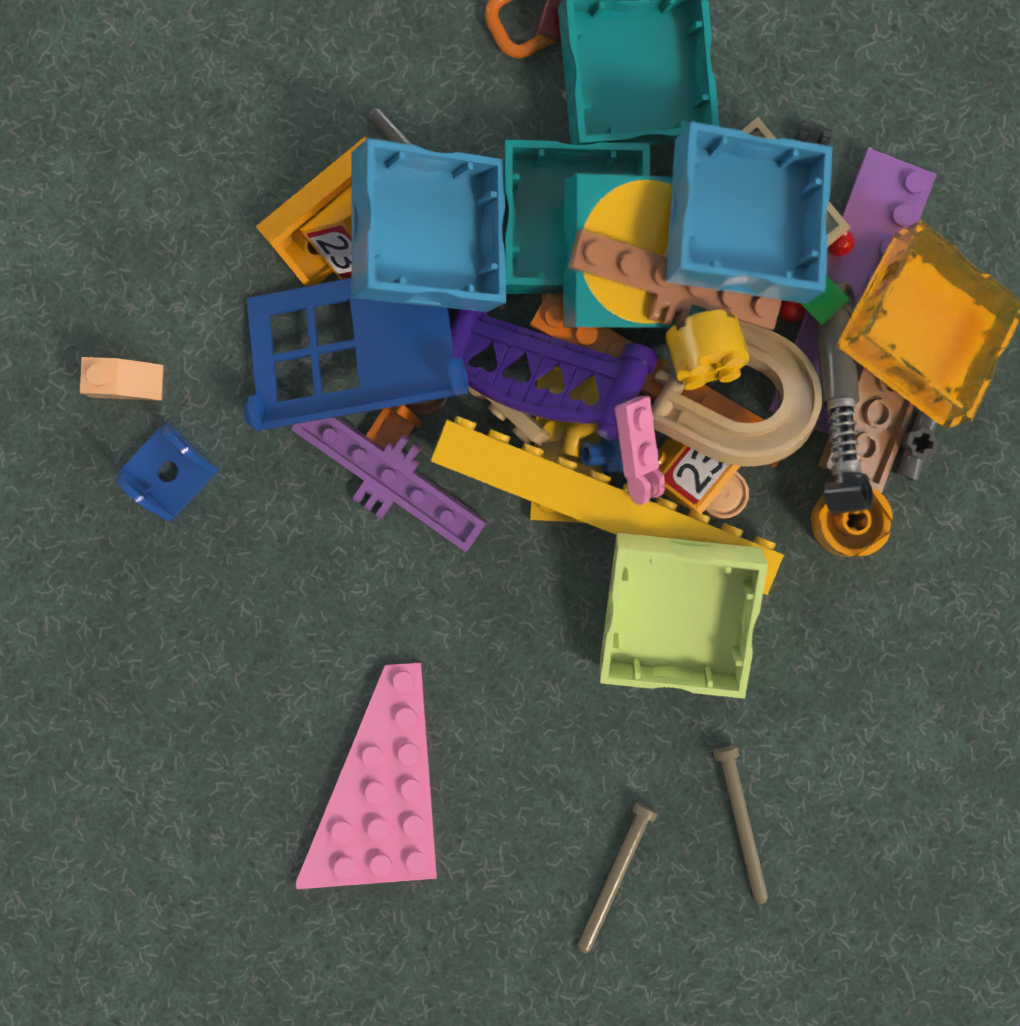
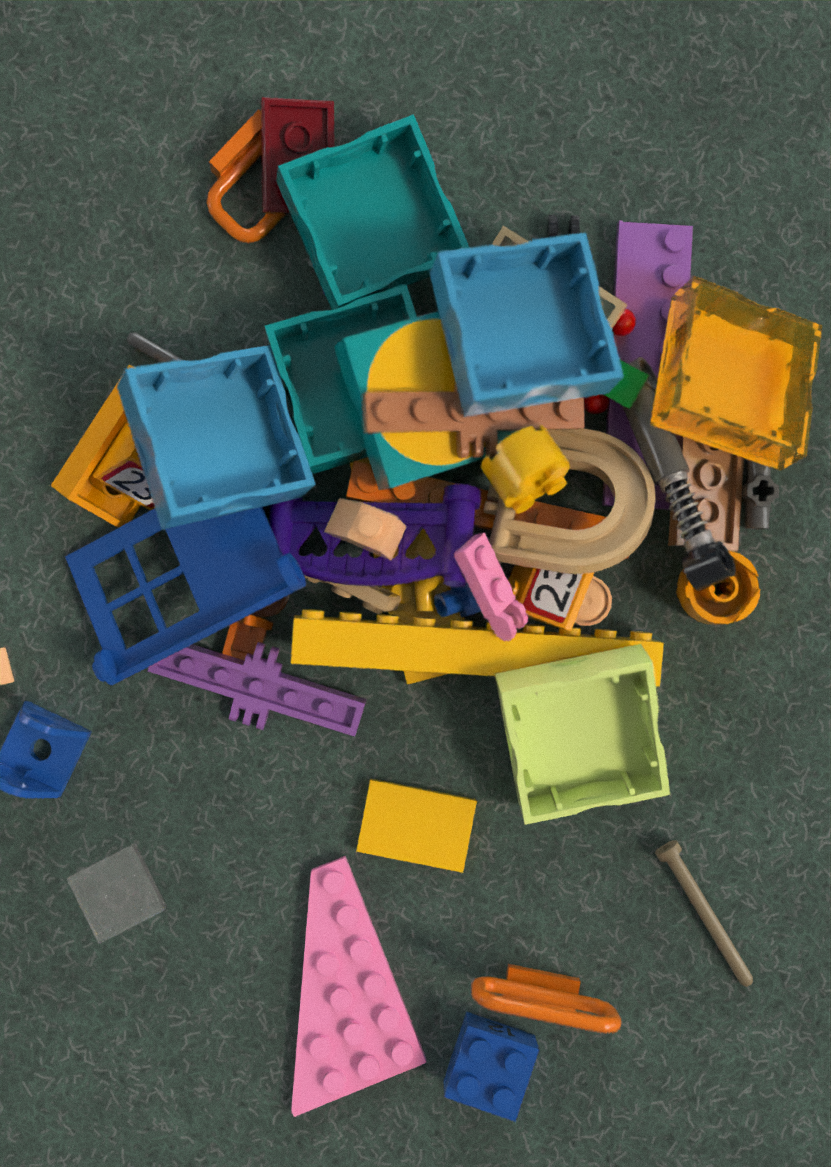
camera: 10 degrees left, 0 degrees up
(196, 627) = (116, 893): none -> clear plate
(495, 899) = (490, 1066): none -> blue brick
(497, 654) = (416, 825): none -> yellow tile
(540, 357) = (366, 527): none -> light nougat slope
(568, 850) = (545, 998): none -> orange bar
(616, 875) = (607, 936): dark tan bar -> none

